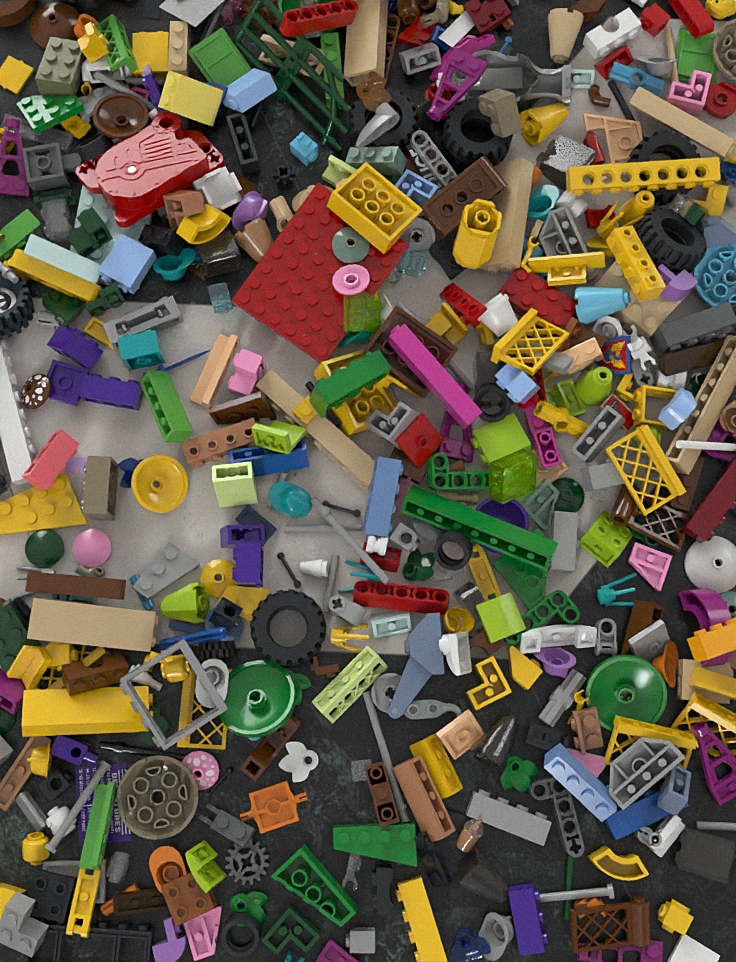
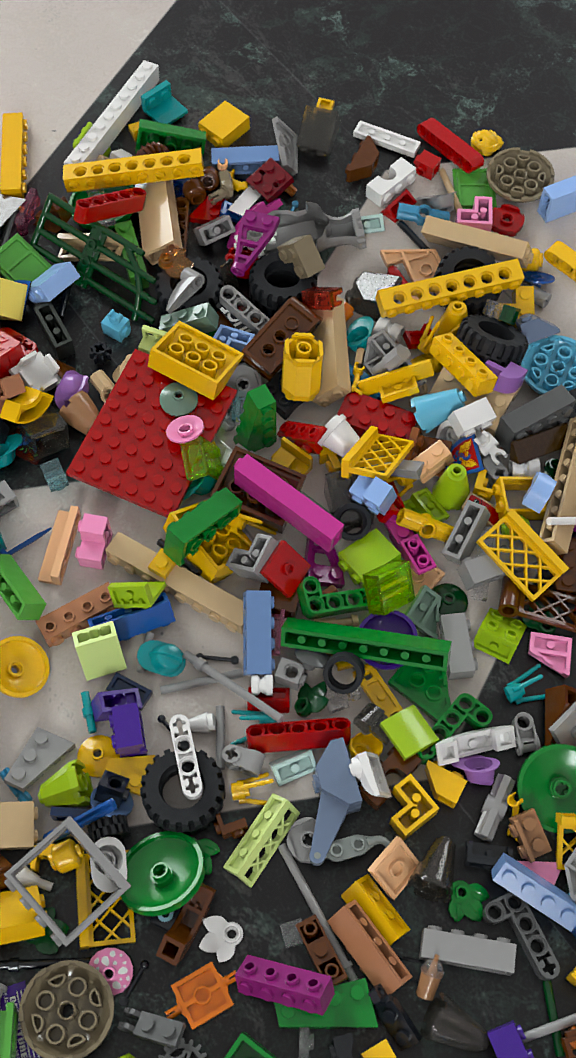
camera: 10 degrees left, 15 degrees down
(215, 537) = (88, 712): none -> teal bar
(243, 408) = (94, 575): reddish brown wing -> none
(298, 601) = (186, 756): none -> white beam
(344, 816) = (285, 984): none -> magenta brick
(422, 283) = (258, 420): none -> green wedge
(511, 161) = (321, 297): none -> clear red hinge
(542, 121) = (342, 264): yellow cone -> none
(563, 32) = (345, 186): tan cone -> none
(567, 243) = (392, 360): none -> light grey piece
(596, 98) = (389, 237): reddish brown arm -> none
(631, 321) = (472, 417): none -> white brick

